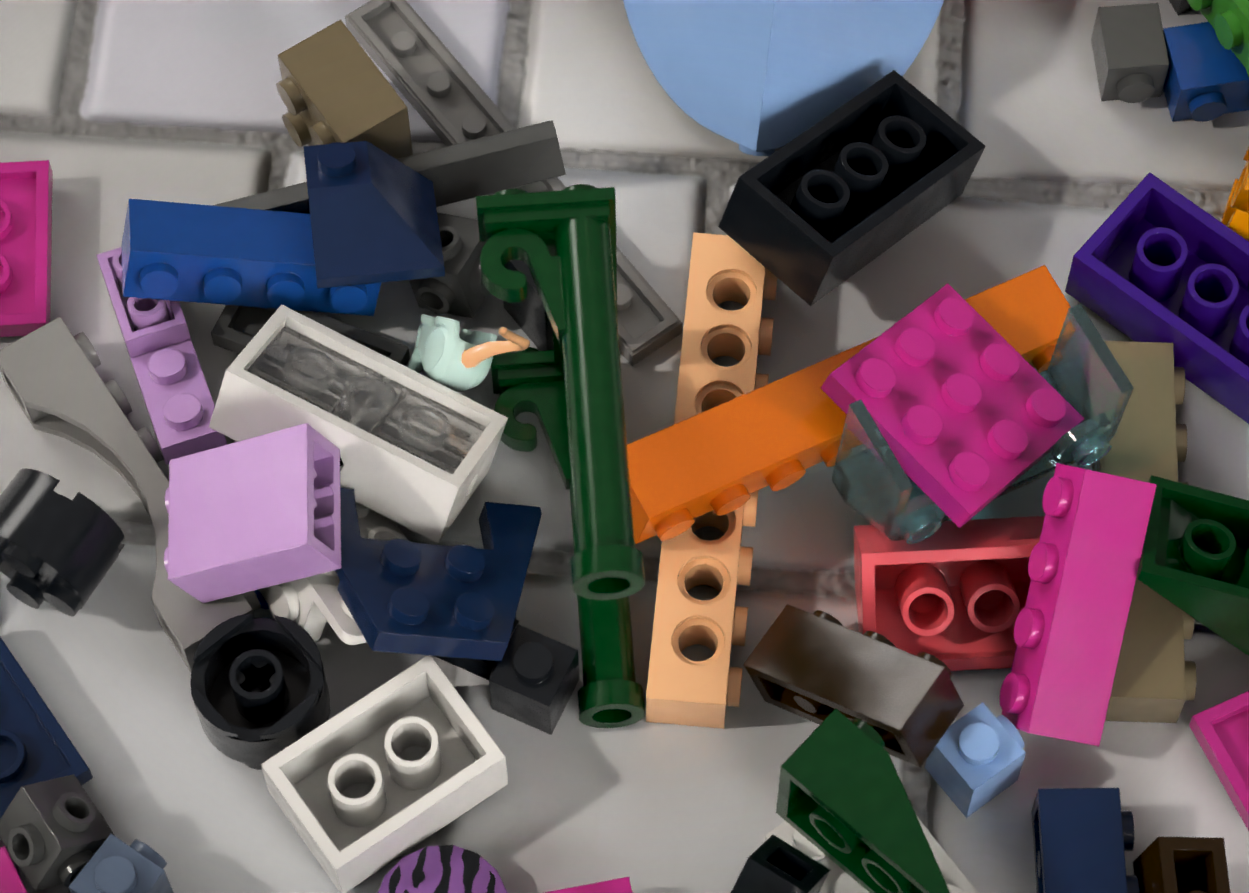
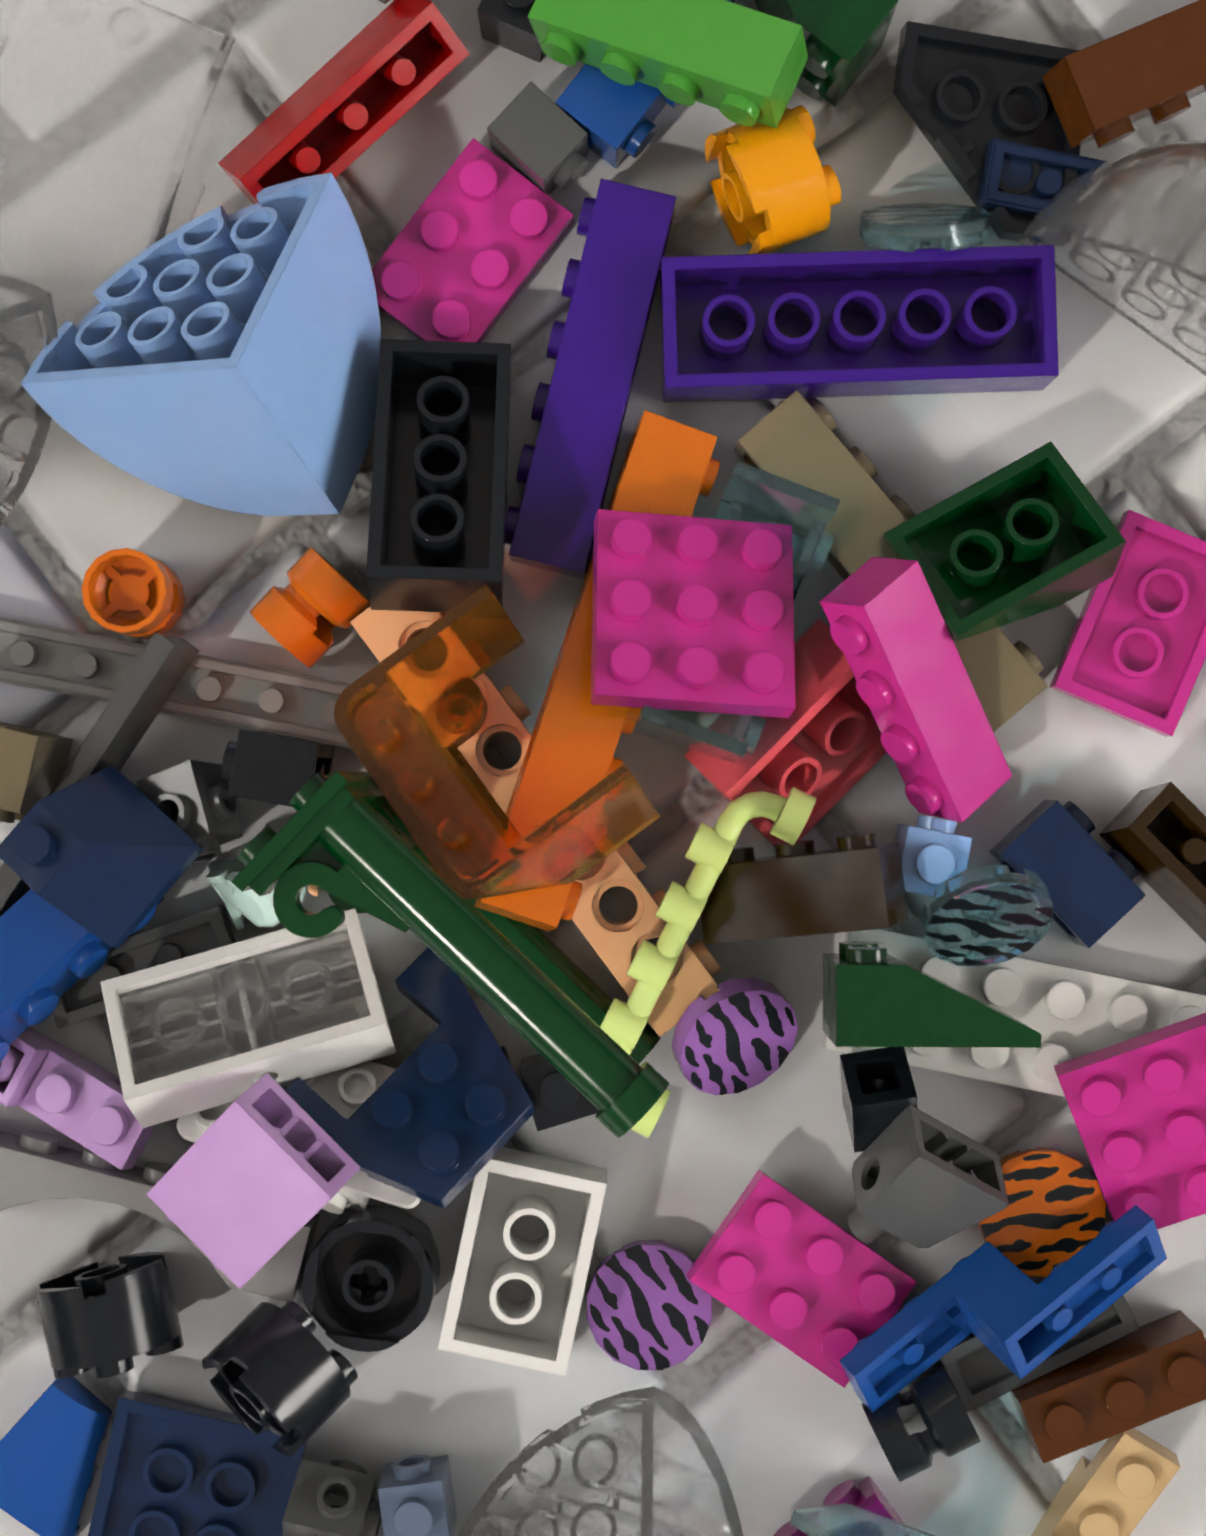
camera: 50 degrees left, 25 degrees up
(123, 690) = (280, 1374): none -> black brick
(559, 87) = (133, 593): none -> orange wheel
(671, 207) = (309, 608): none -> orange wheel
(699, 306) = (406, 732): none -> clear orange windscreen
(703, 755) = (734, 1036): none -> medium lavender tile
(751, 614) = (683, 907): none -> yellowish green bar
(985, 817) = (987, 916): none -> clear light blue tile
(1016, 83) = (468, 250): none -> dark pink plate
(1029, 223) = (591, 377): none -> dark purple brick

